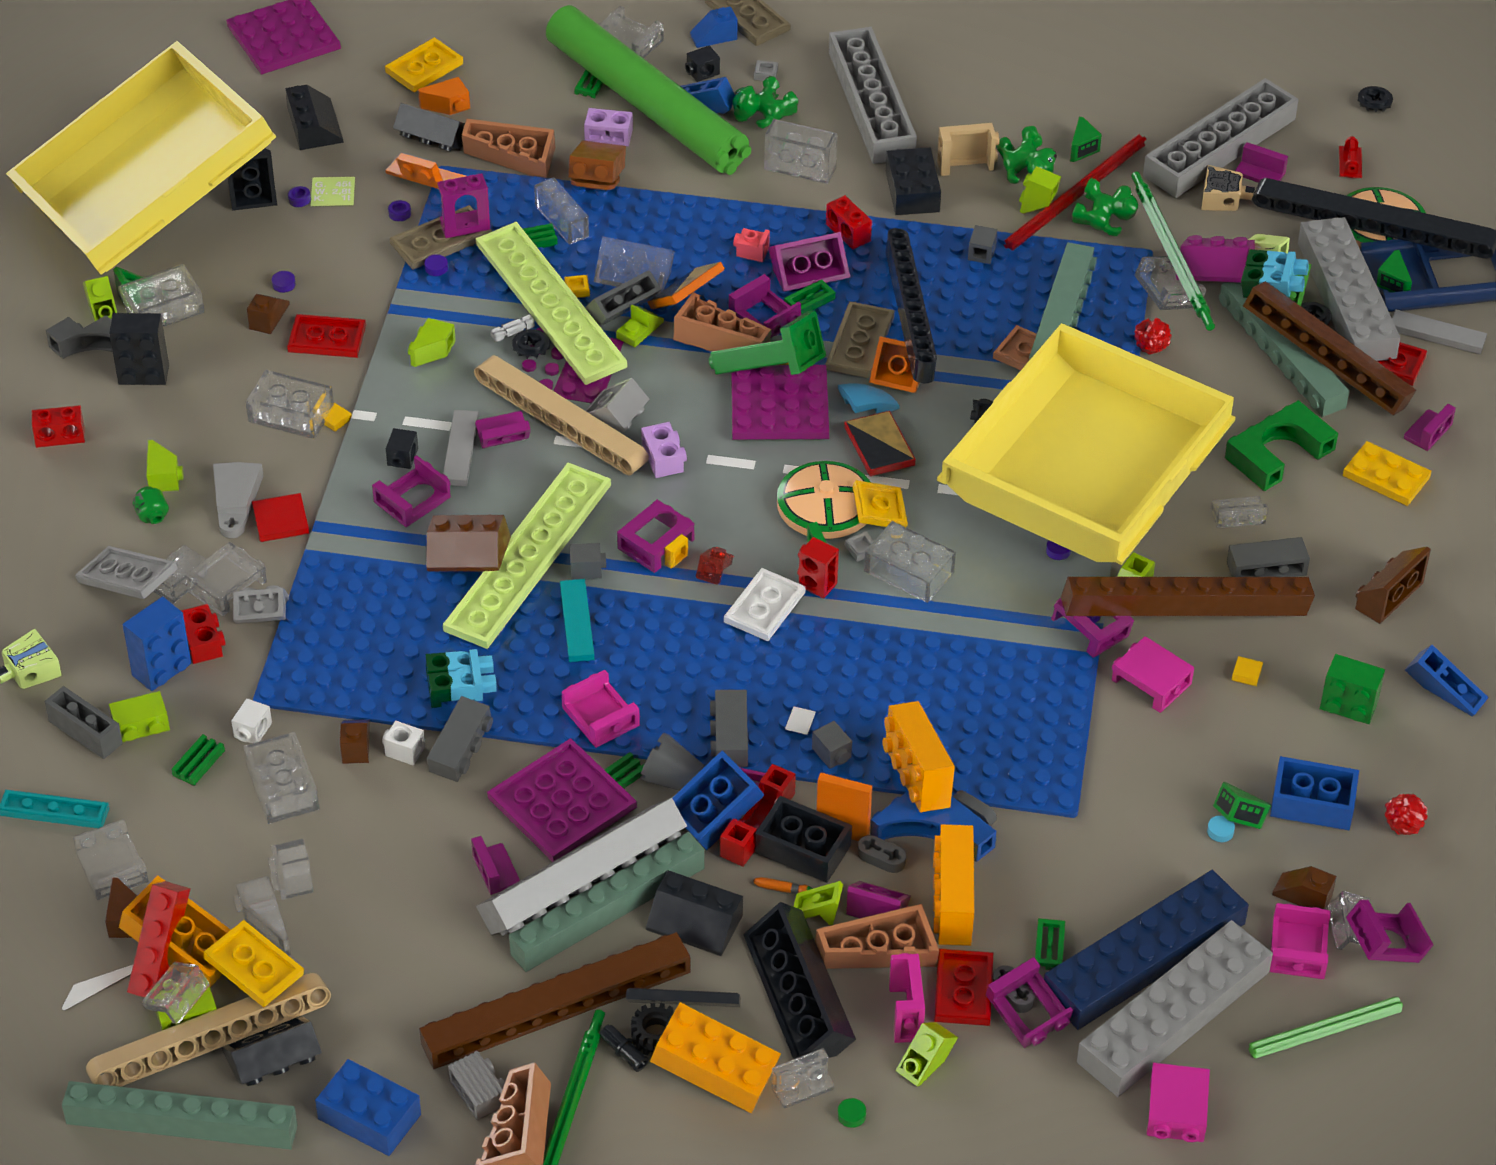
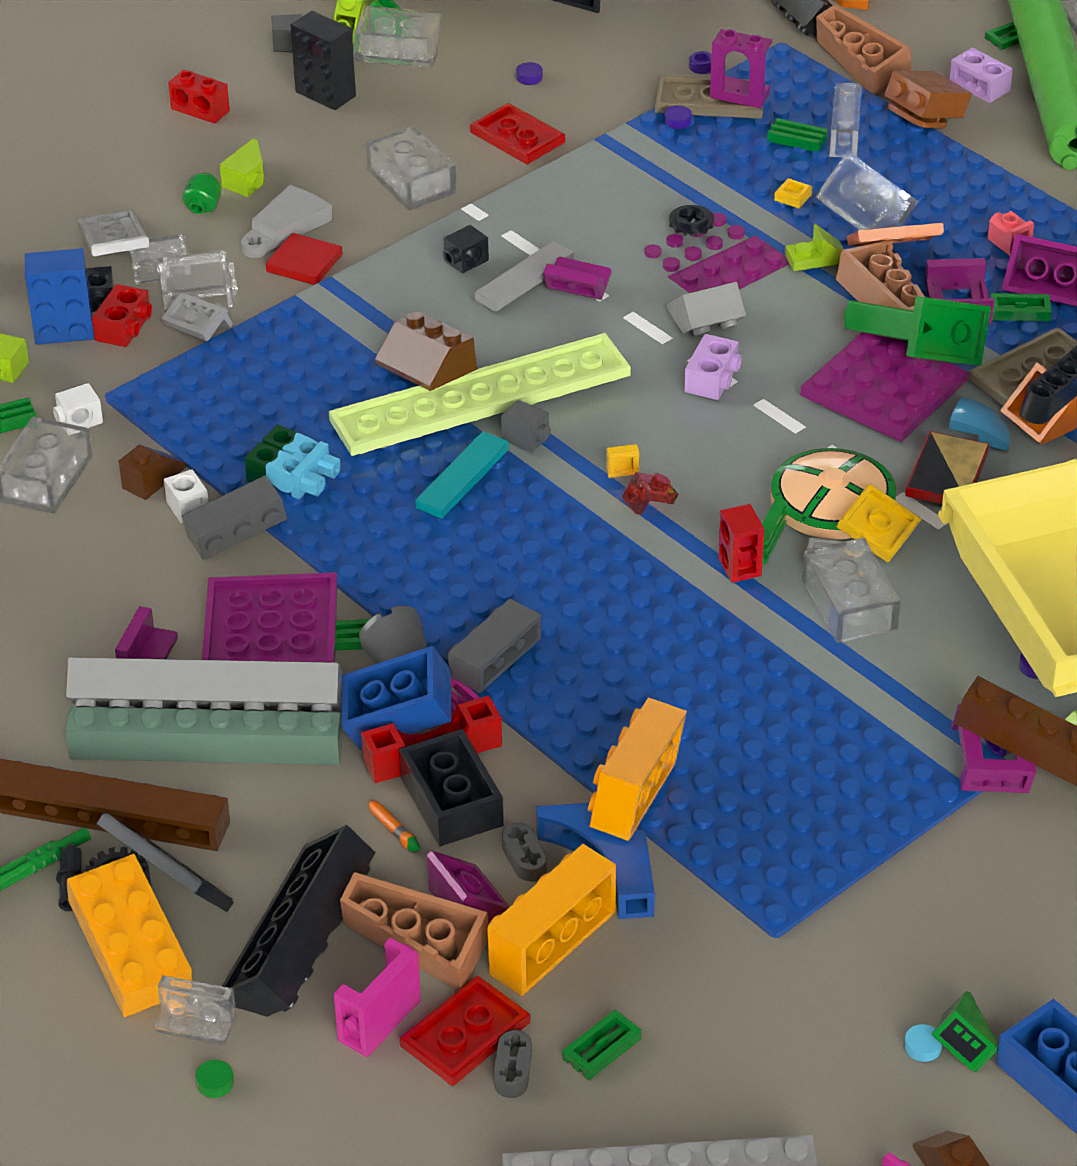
camera: 40 degrees right, 5 degrees down
(265, 312) = (482, 88): reddish brown slope -> none
(299, 196) = (622, 12): dark purple tile -> none
(332, 191) = (660, 22): yellowish green sticker -> none
(337, 417) = (448, 203): yellow tile -> none
(390, 497) = (457, 281): magenta panel -> none
(419, 170) = (743, 23): orange bracket -> none
(432, 342) = (595, 175): lime slope -> none
(512, 328) = (683, 198): light grey axle -> none
(551, 303) = (747, 195): yellowish green plate -> none
(561, 415) = (648, 293): tan beam -> none
(599, 709) = (391, 560): dark pink panel -> none
(619, 300) = (797, 217): dark grey brick -> none
(641, 550) = (595, 448): magenta panel -> none
(696, 911) = (274, 796): black slope -> none
(764, 604) = (662, 555): white tile -> none
(800, 720) = (580, 680): white sticker -> none
(820, 901) = (405, 860): lime slope -> none
(832, 744) = (577, 715): dark grey brick -> none
(846, 802) = (512, 771): orange tile -> none
(926, 1052) = (349, 1065): lime slope -> none
(979, 808) = (662, 863): dark grey beam -> none
(1028, 973) = (503, 1048): magenta panel -> none
(1144, 948) = (691, 1103): dark blue brick -> none
(1154, 672) = (1012, 841): dark pink panel -> none

